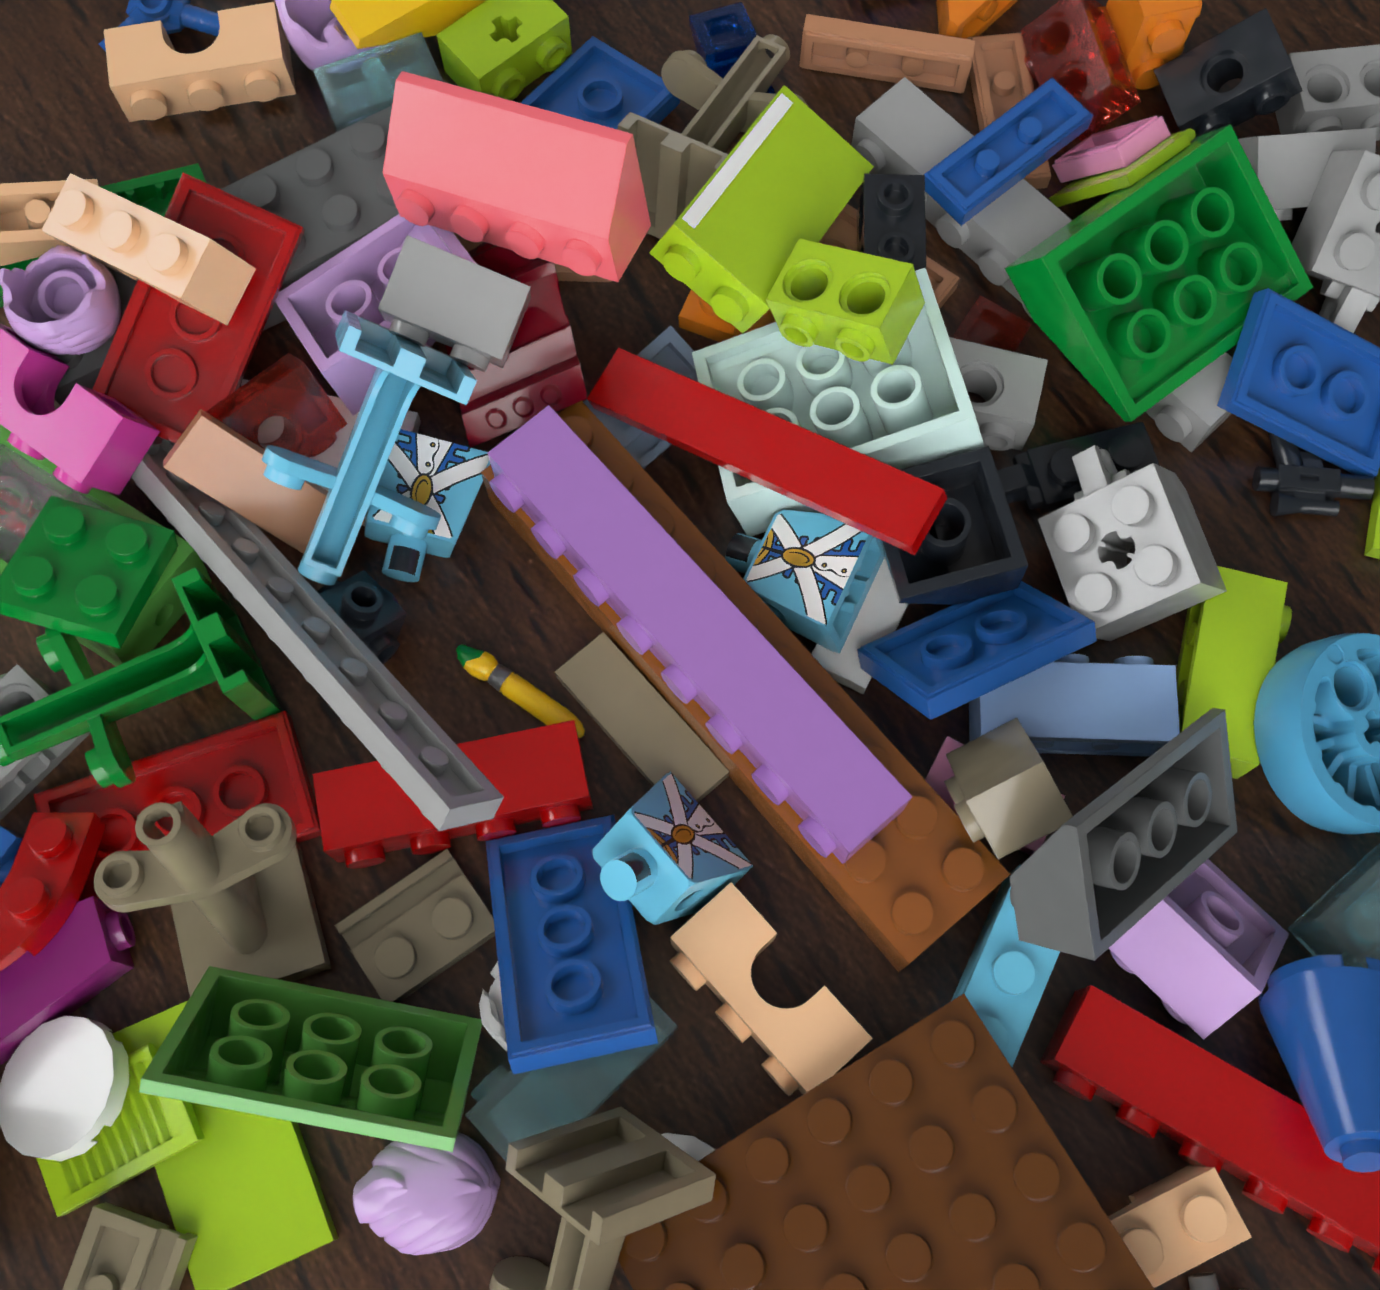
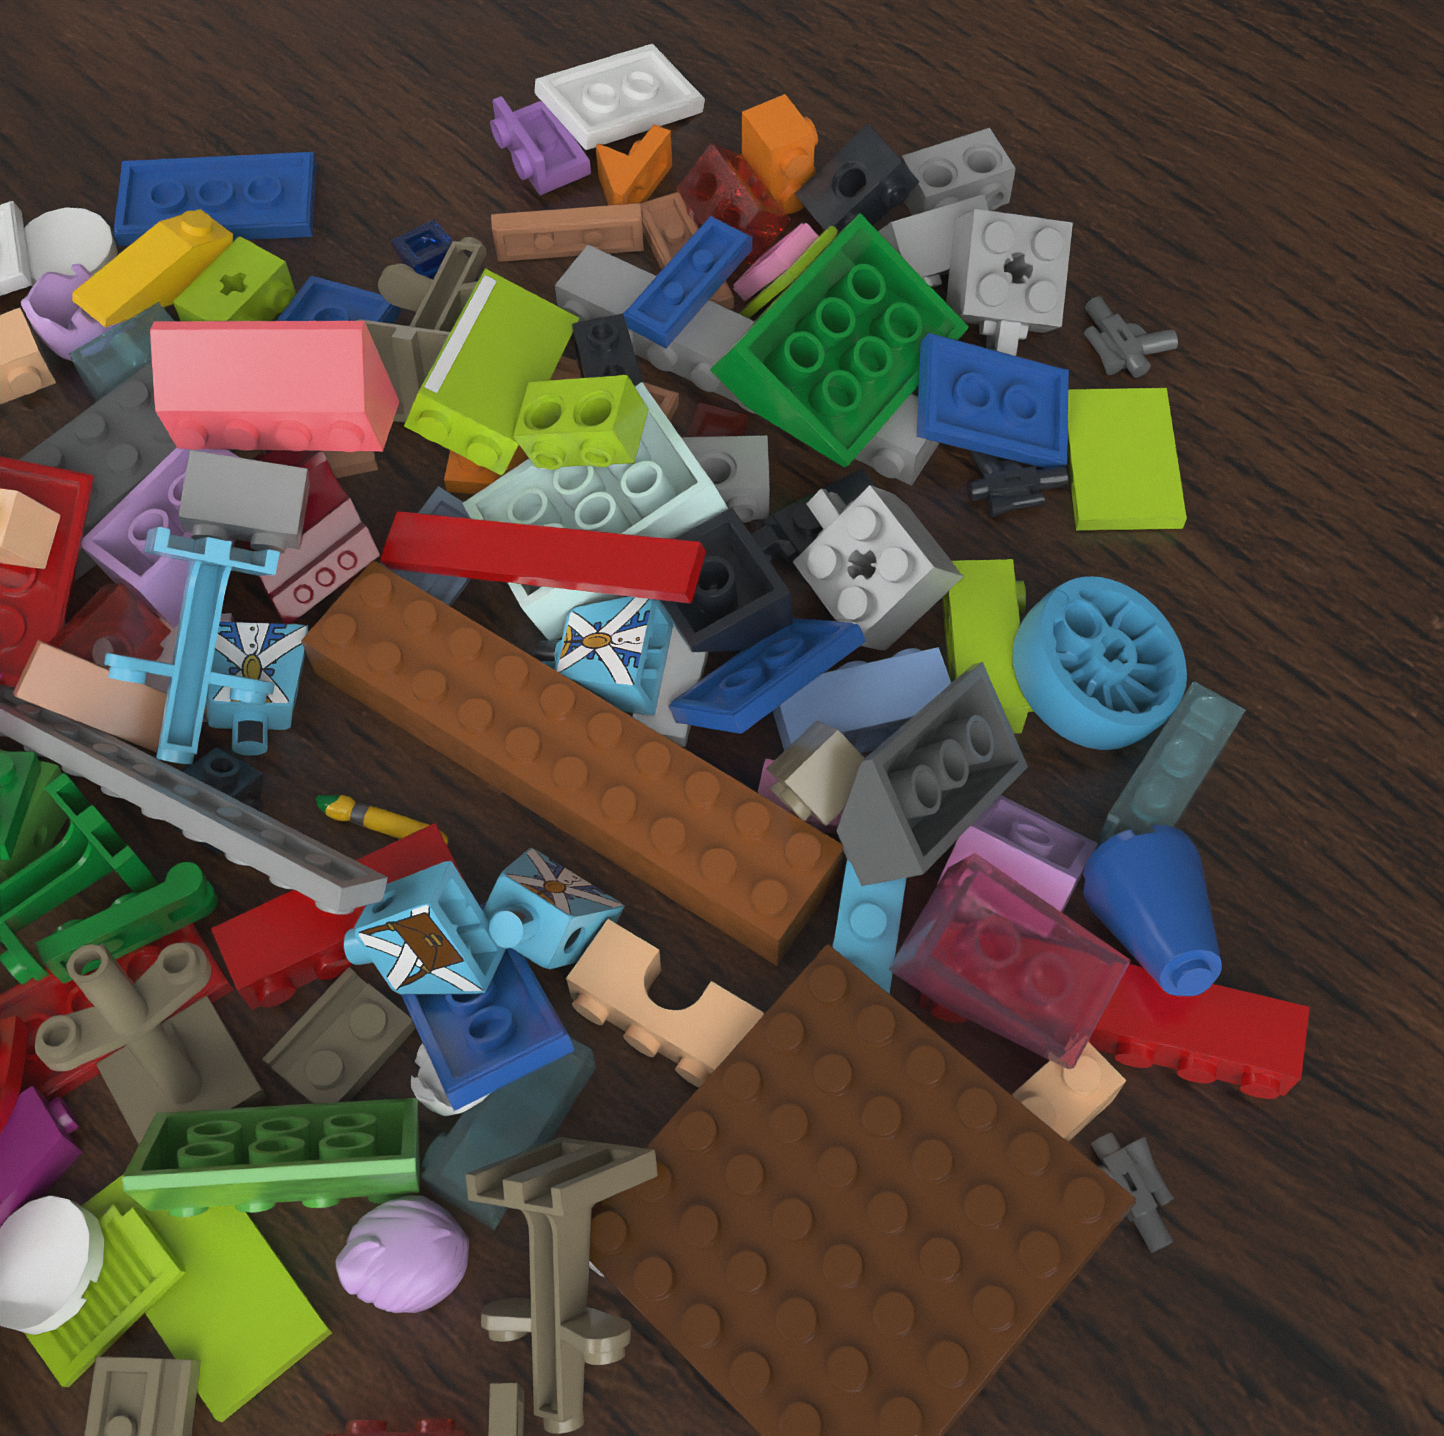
camera: 15 degrees left, 10 degrees down
(233, 742) = (133, 920): none -> green plate
(535, 859) = (427, 936): none -> medium azure torso
(639, 718) = (492, 814): dark tan tile -> none
(698, 636) = (524, 718): medium lavender brick -> none
(1161, 1070) = (1010, 962): none -> clear pink slope

